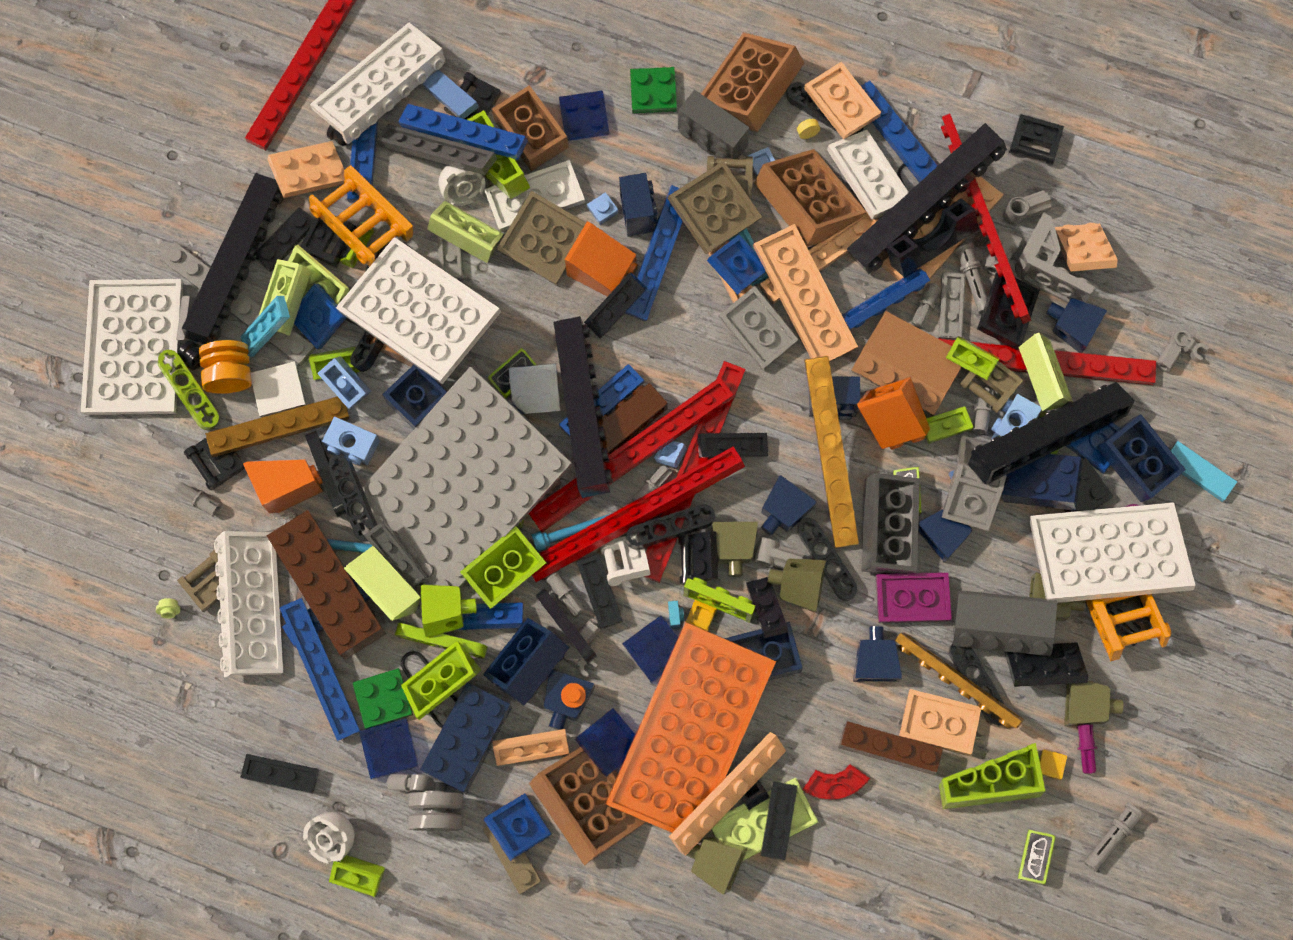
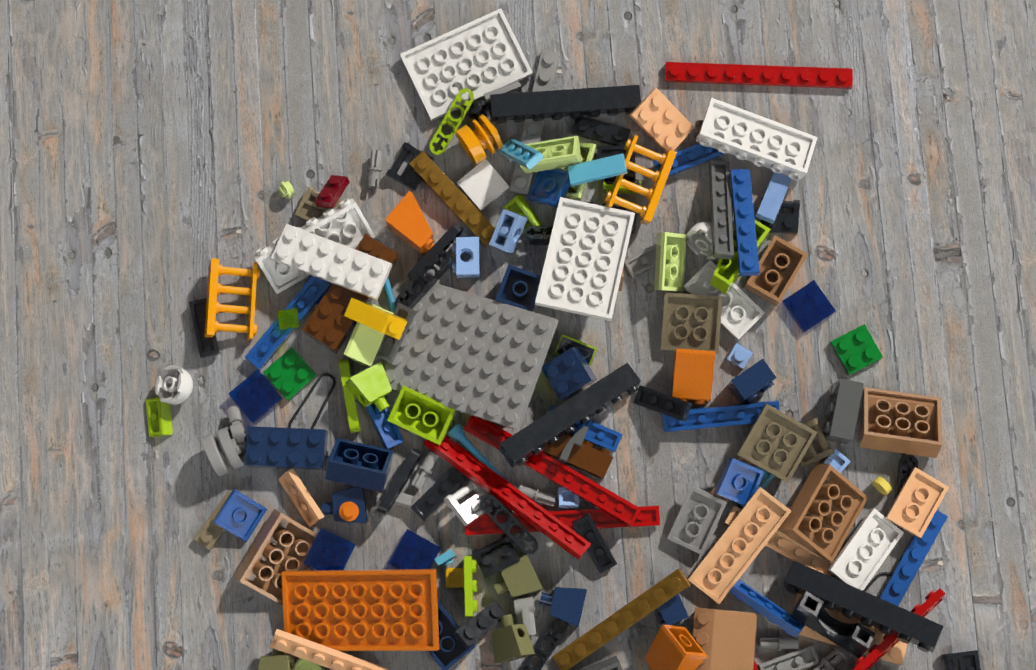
camera: 65 degrees right, 5 degrees up
(197, 556) = (332, 191): none -> dark red plate
(262, 749) = (214, 307): none -> light orange fence
(278, 586) = (331, 261): none -> white plate
(319, 668) = (288, 319): none -> clear neon green tile
(326, 253) = (597, 169): none -> medium azure tile
(370, 563) = (375, 318): none -> yellow slope
(439, 679) = (318, 409): lime slope -> none
(613, 411) = (576, 440): none -> dark grey slope

